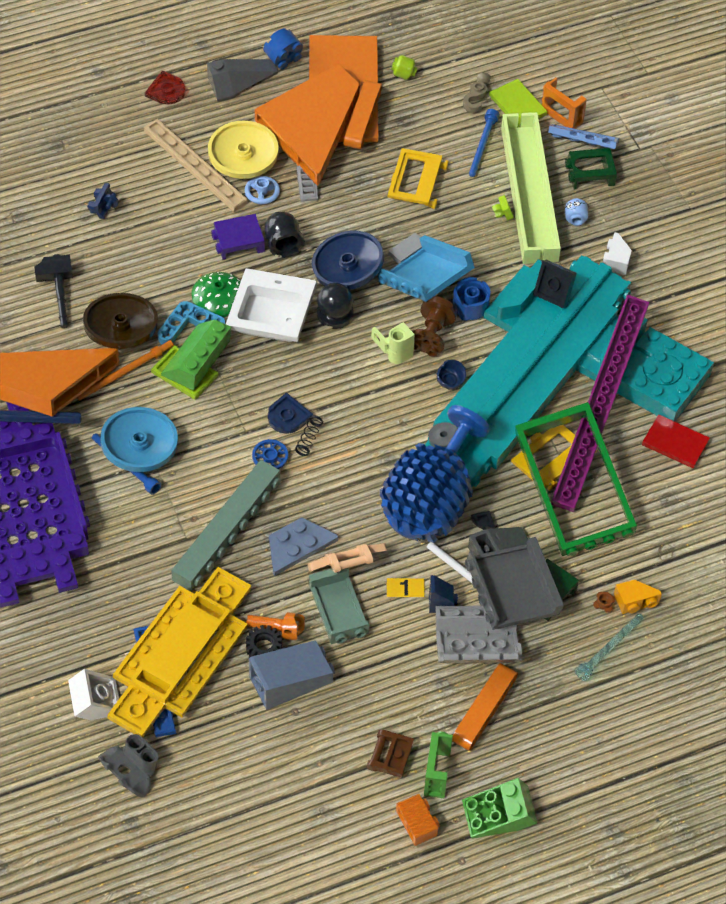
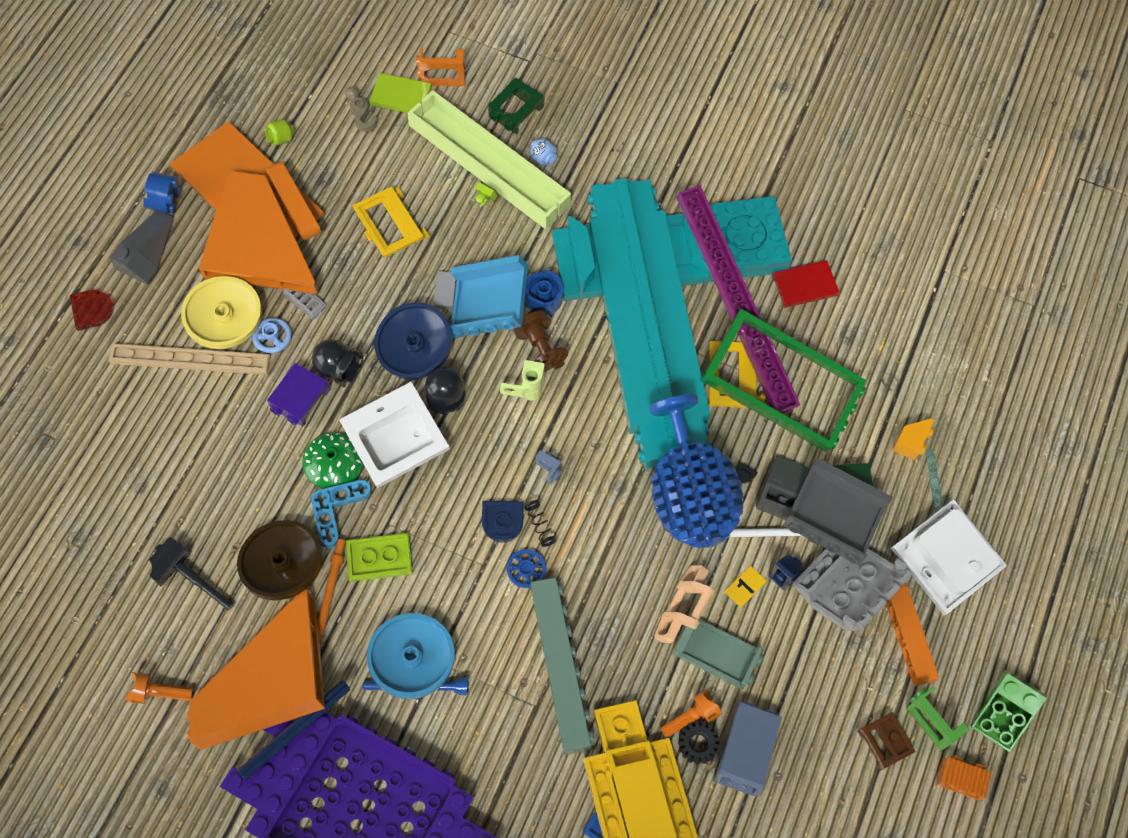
camera: 45 degrees left, 10 degrees up
(104, 201) = (148, 459): dark blue hips -> none
(198, 353) = (375, 532): bright green slope -> none
(297, 543) = (628, 627): sand blue wing -> none
(354, 411) = (550, 463): none -> sand blue bracket
(438, 431) = (656, 441): dark grey piece -> none
(451, 374) = (595, 371): dark blue hair -> none
(491, 118) = (393, 122): blue piece -> none
(554, 283) = (607, 227): black tile -> none
(573, 687) = (951, 555): none -> white piece
(588, 137) = (484, 82): medium blue wing -> none
(608, 598) = (899, 458): dark orange plate -> none
(618, 255) = (610, 163): white slope -> none

